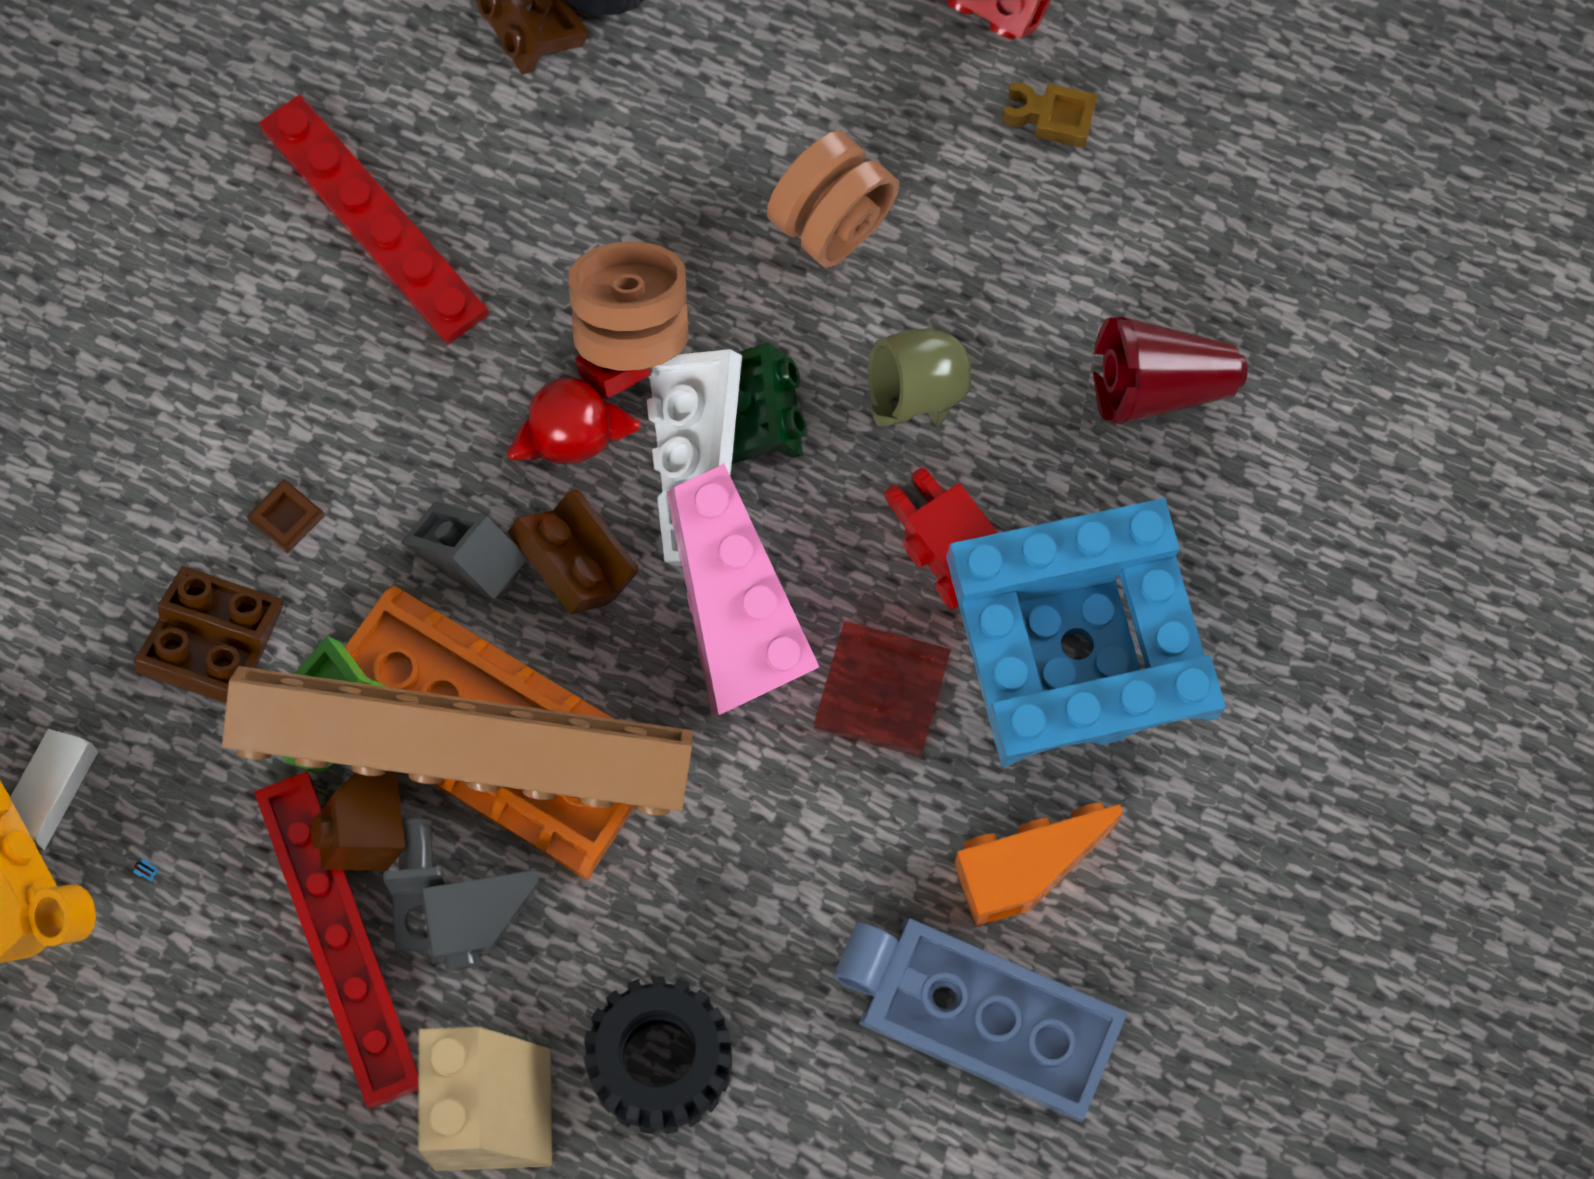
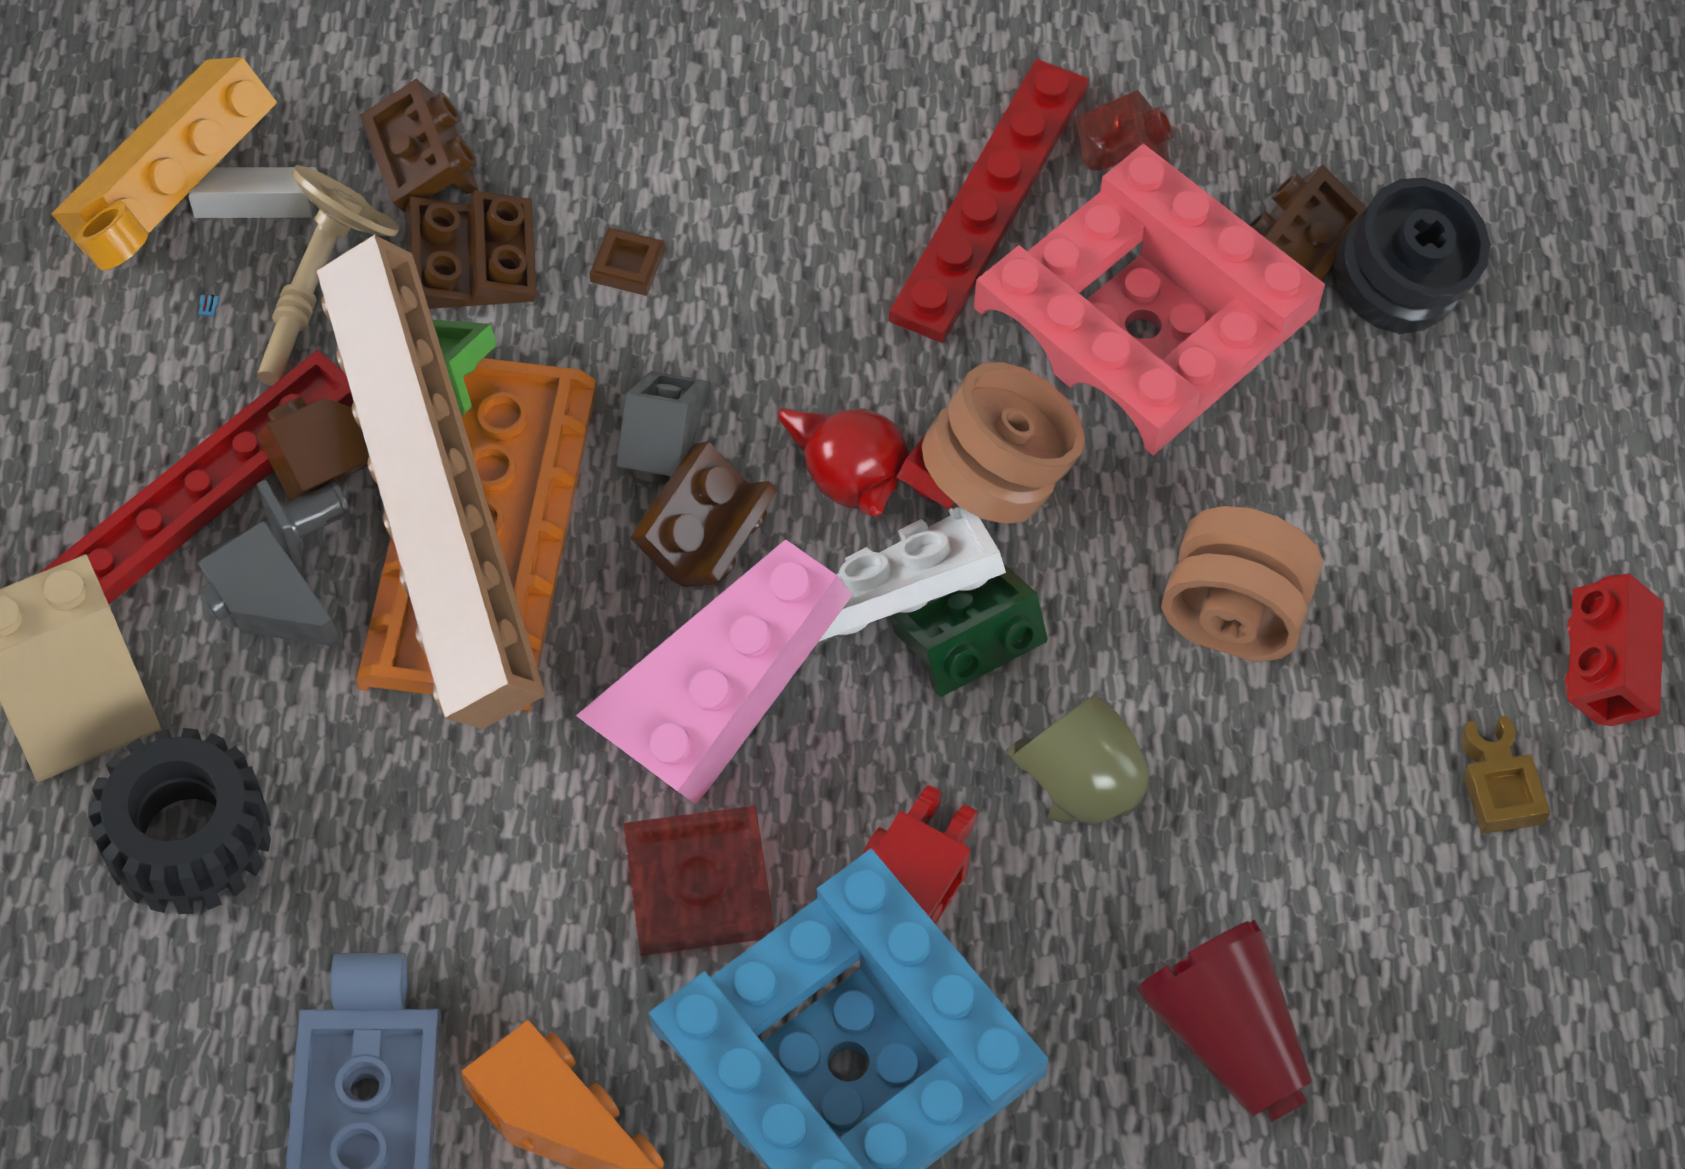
camera: 65 degrees right, 10 degrees down
(79, 635) = (418, 144): none -> reddish brown bracket
(123, 723) = (337, 215): none -> tan dish
(367, 94) = (1119, 128): none -> clear red bracket
(529, 104) = (1200, 277): none -> coral piece

